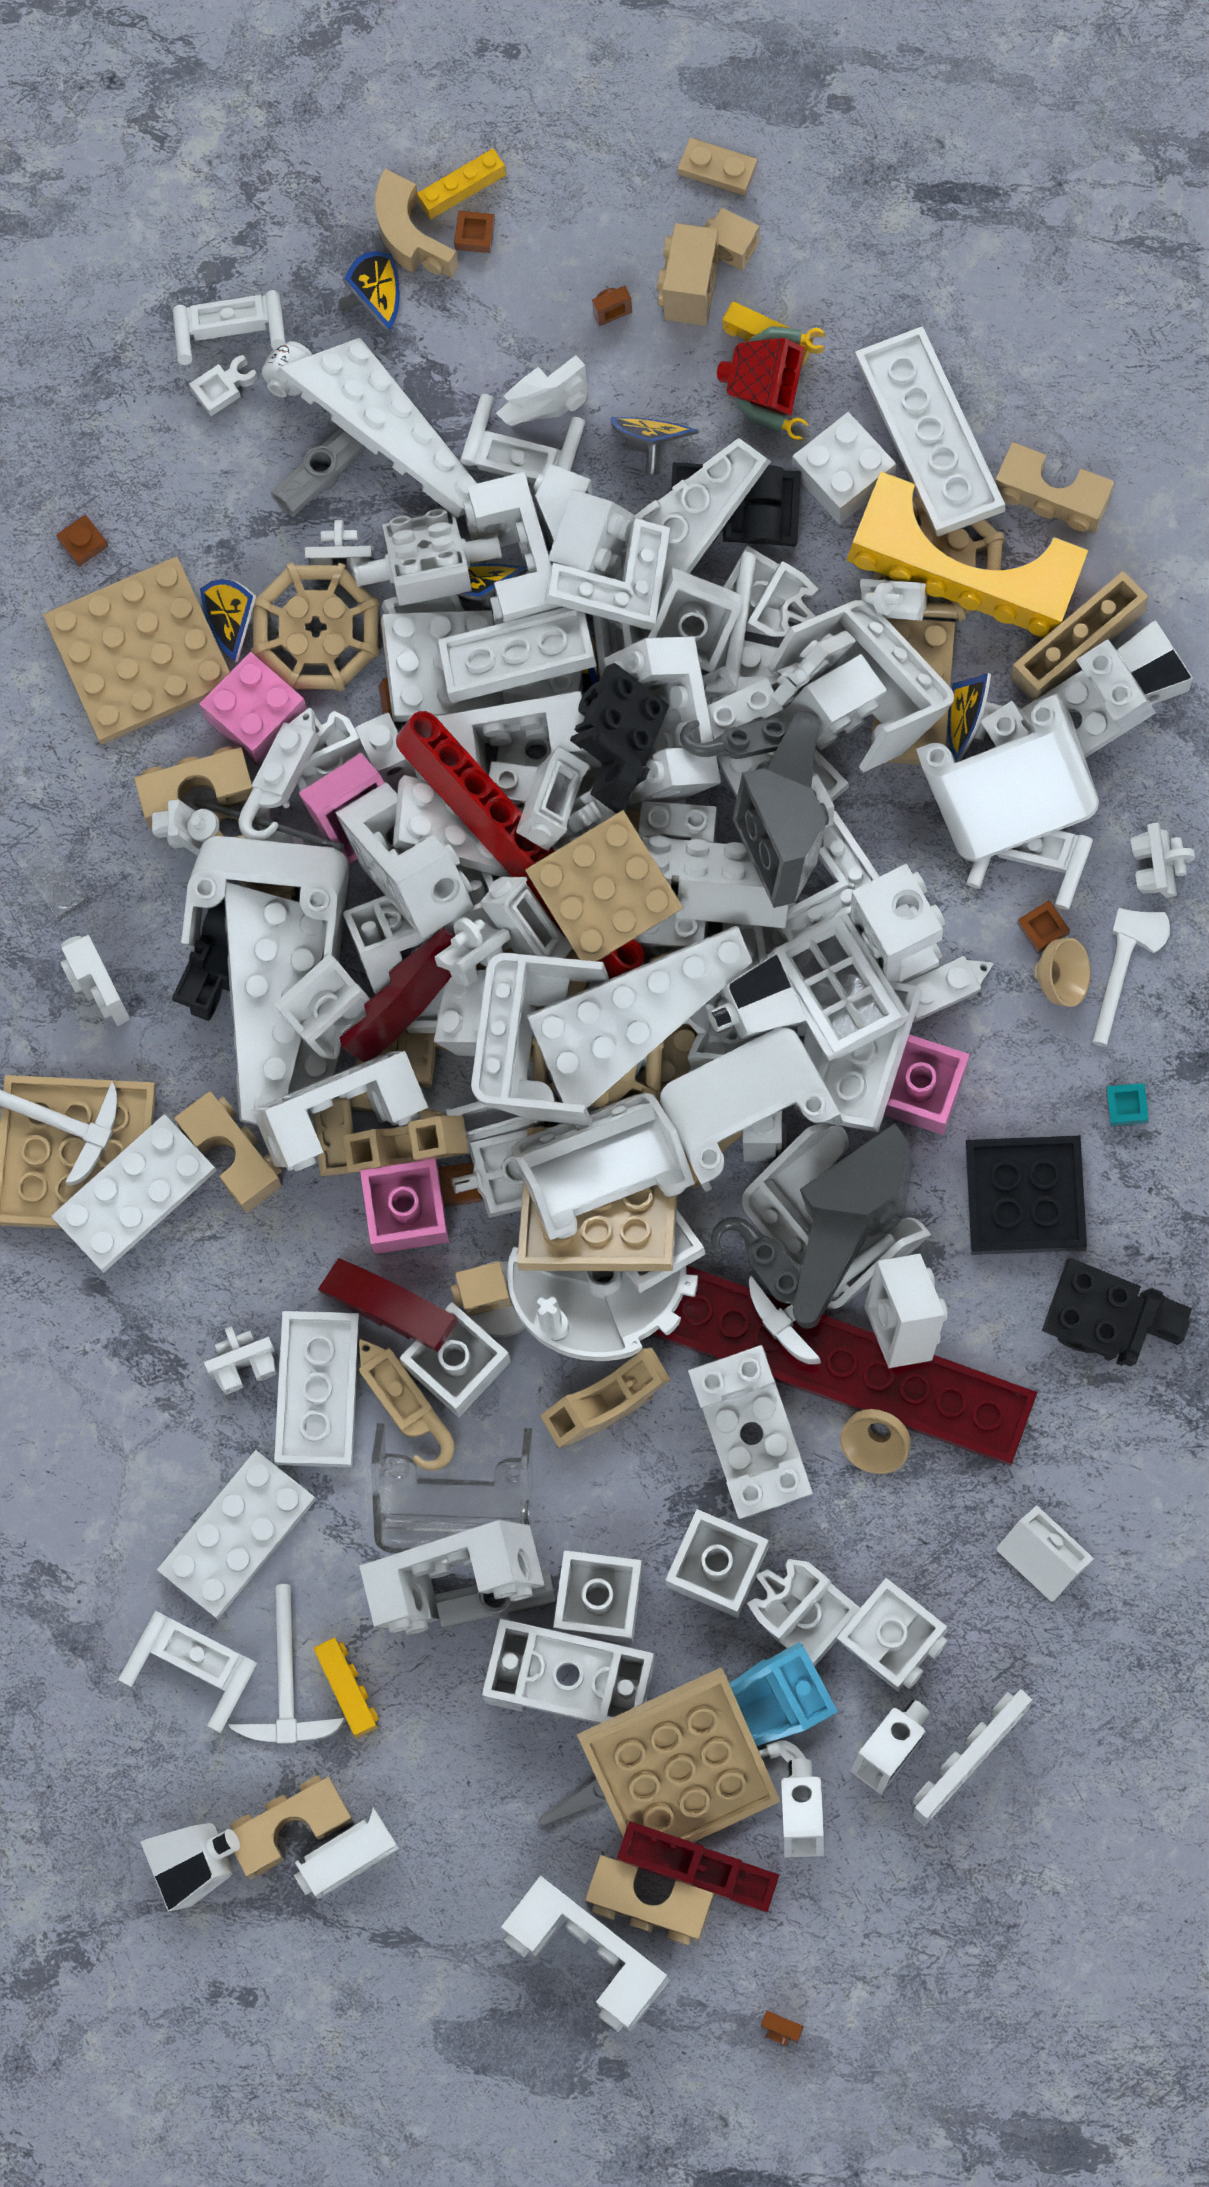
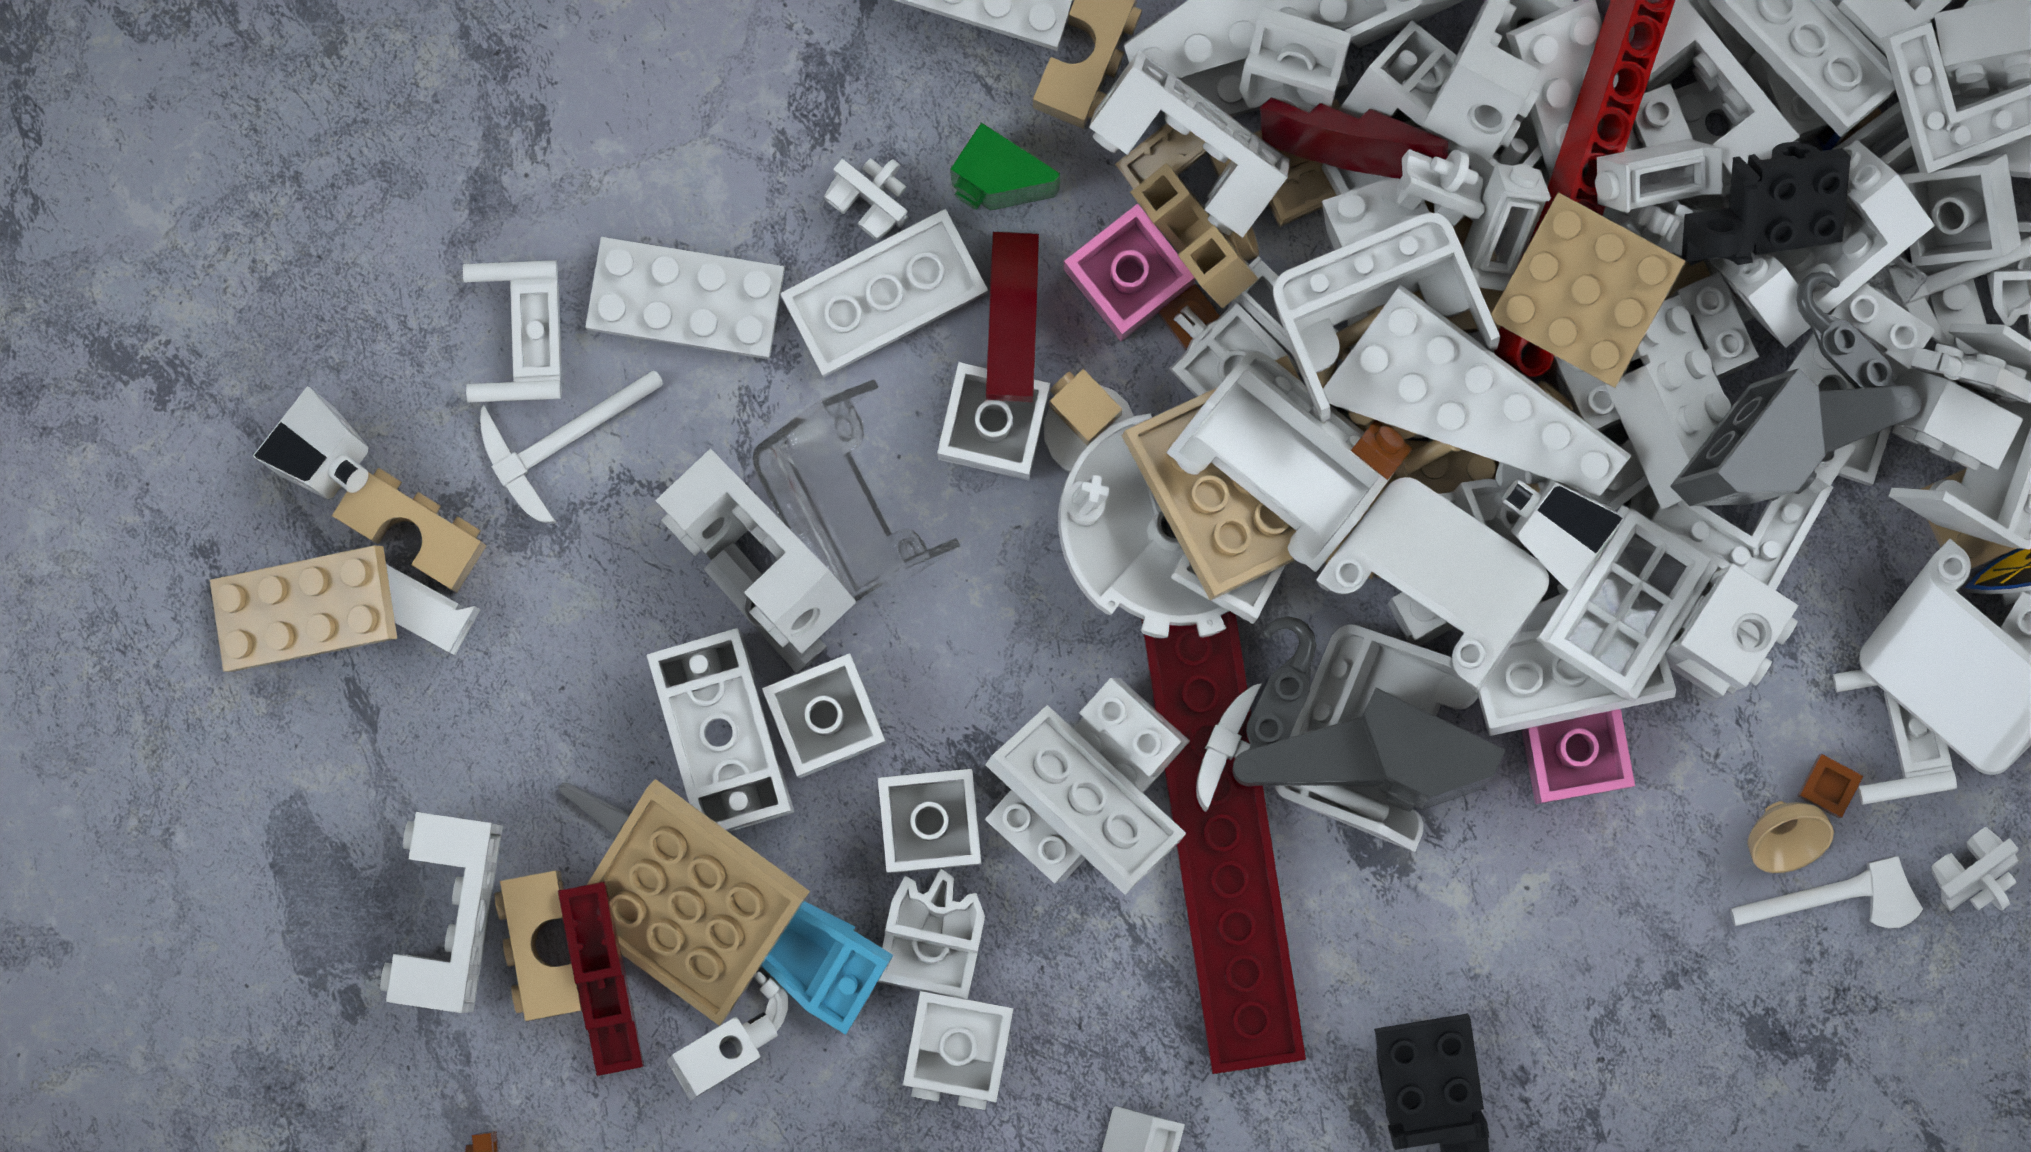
camera: 55 degrees right, 10 degrees up
(281, 1255) = (1000, 173): none -> green slope
(302, 1936) = (303, 609): none -> tan plate
(344, 1685) = (587, 505): yellow piece -> none
(404, 1401) = (921, 392): tan plate -> none
(607, 1400) = (1039, 604): tan arch -> none
(632, 1094) = (1382, 449): none -> dark orange plate
(764, 1438) = (1085, 799): none -> white plate
(871, 1451) = (1146, 917): tan piece -> none
(883, 1754) = (820, 1109): white torso -> none
(905, 1310) = (1311, 872): white brick -> none
(949, 985) = (1705, 717): white plate -> none
(1025, 1195) = (1517, 929): black plate -> none
(1127, 1104) = (1680, 984): teal plate -> none

